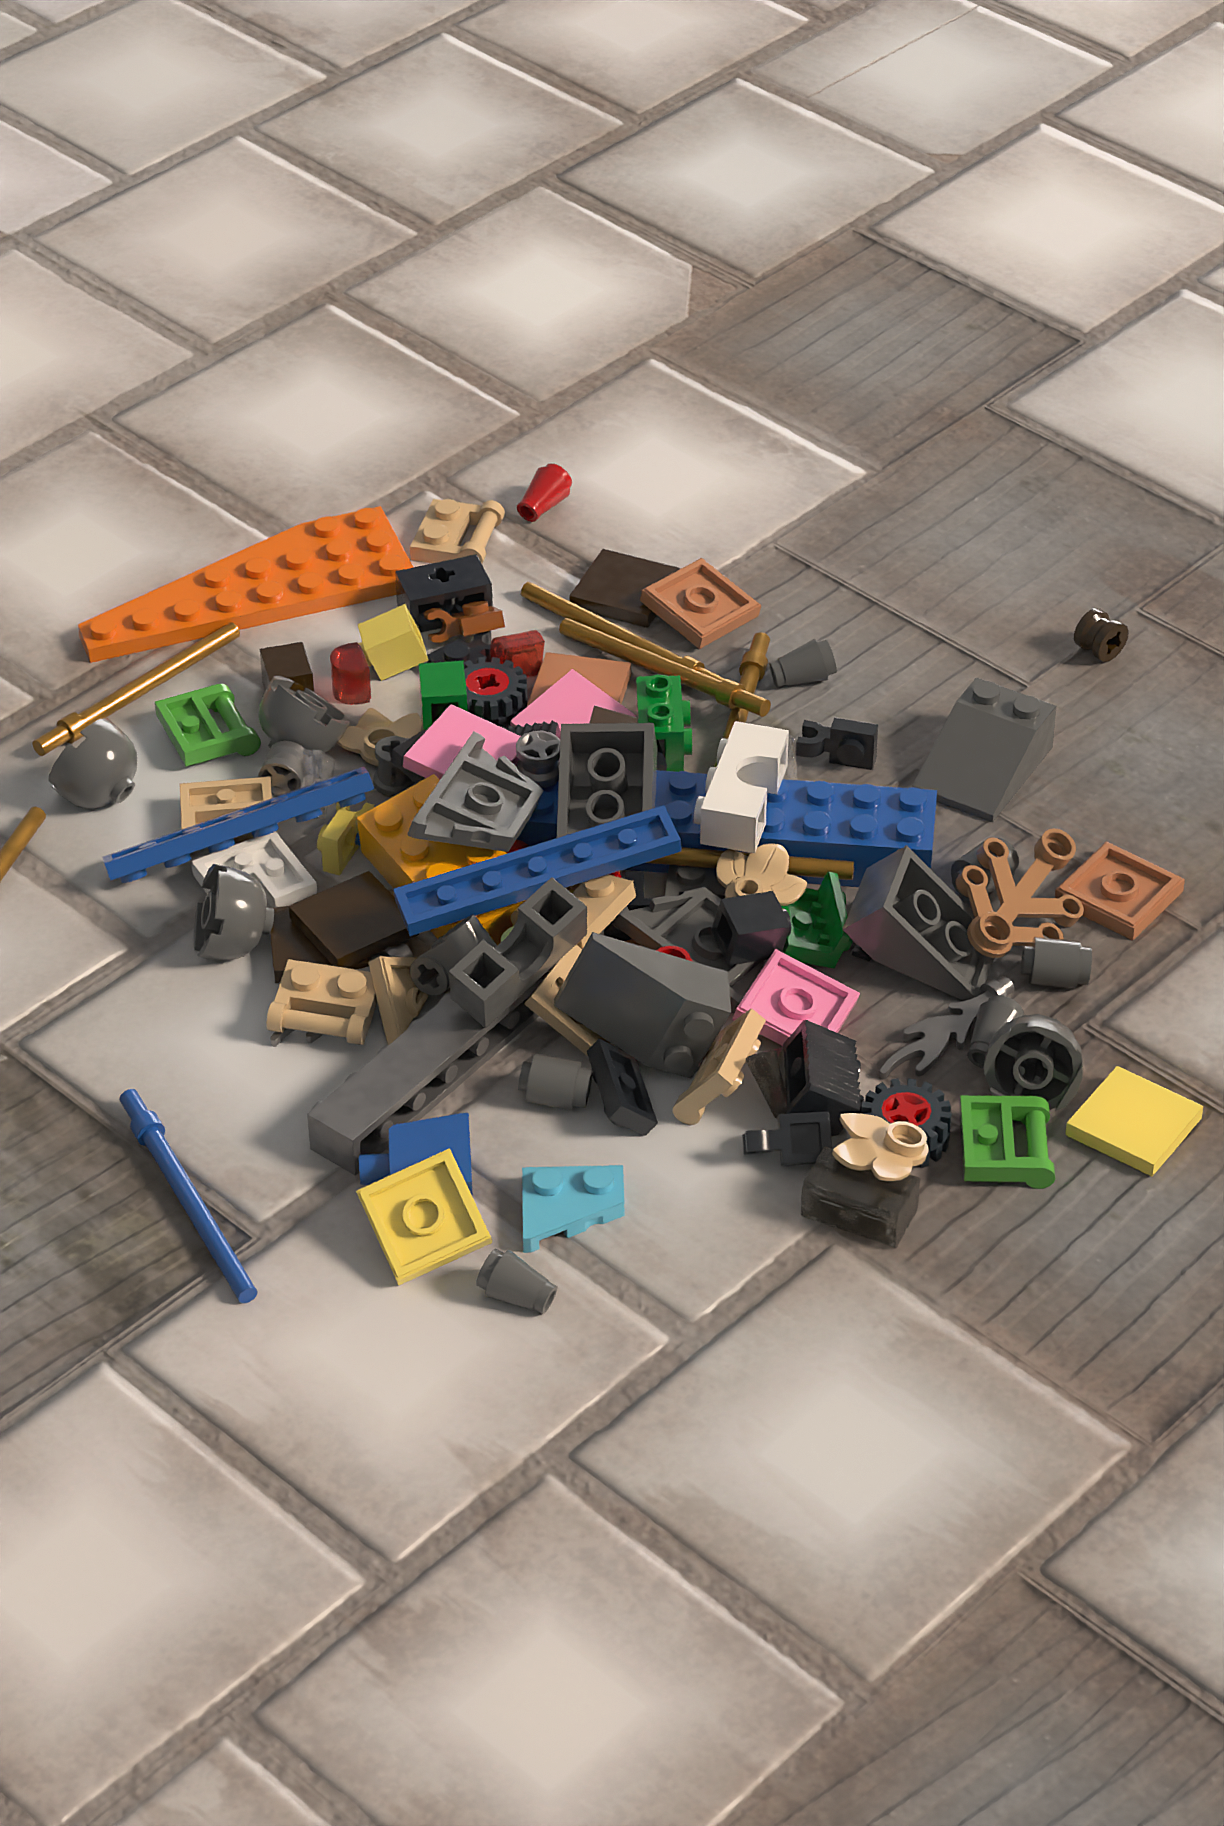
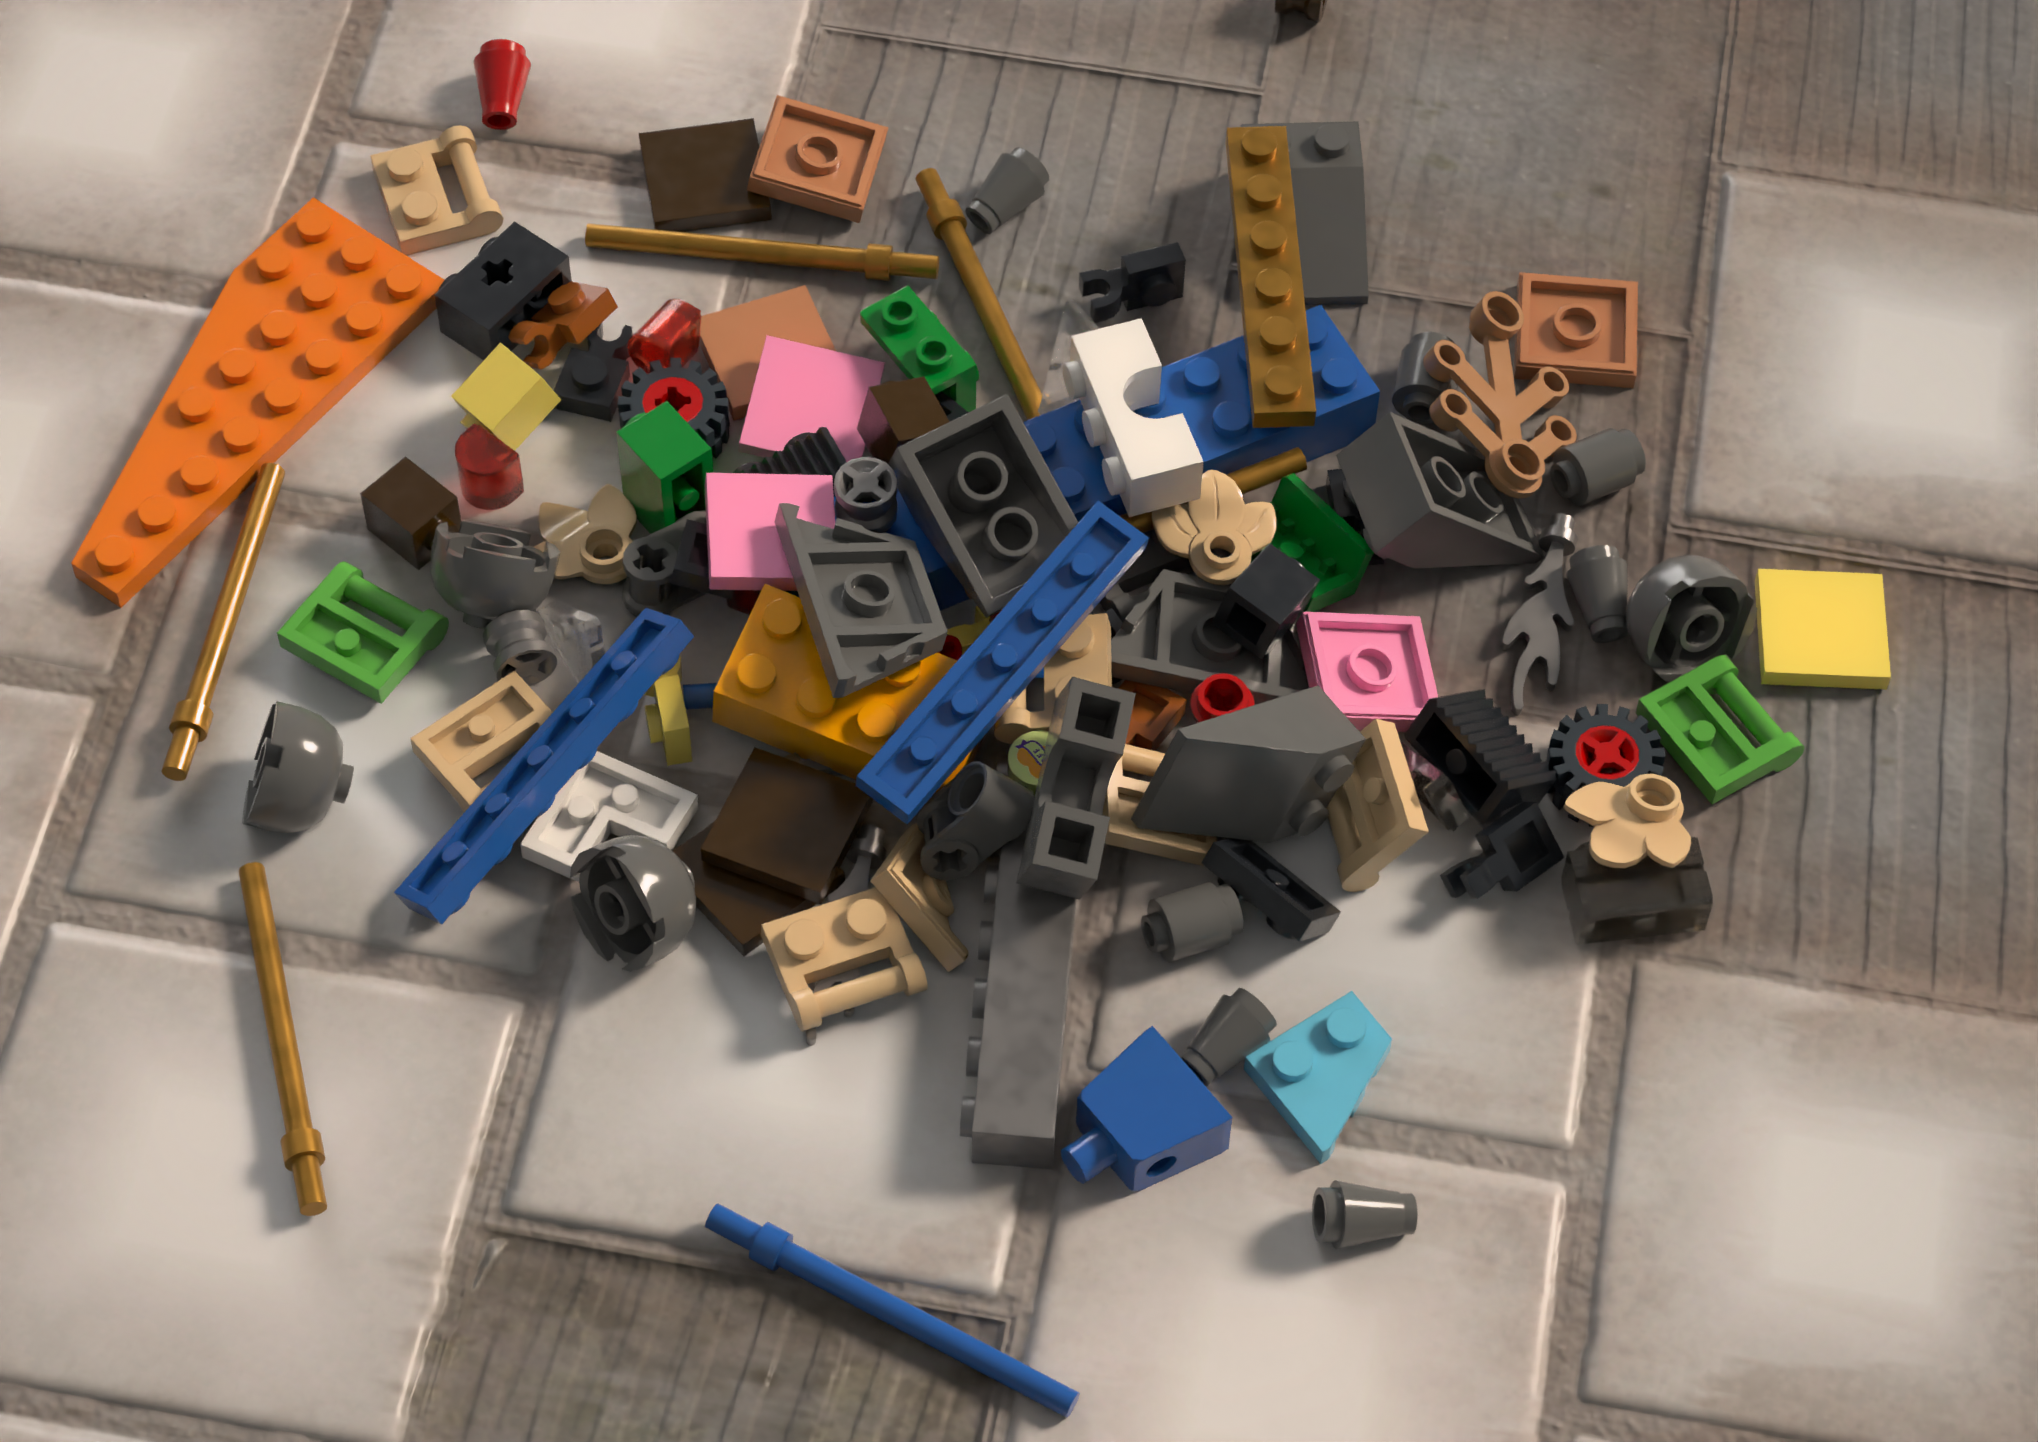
camera: 35 degrees left, 15 degrees up
(424, 1216) = (1208, 1192): light yellow tile -> none
(523, 1148) = (1228, 1035): none -> dark grey cone
(725, 692) = (965, 277): pearl gold bar -> none
(908, 756) = (1270, 278): none -> pearl gold plate

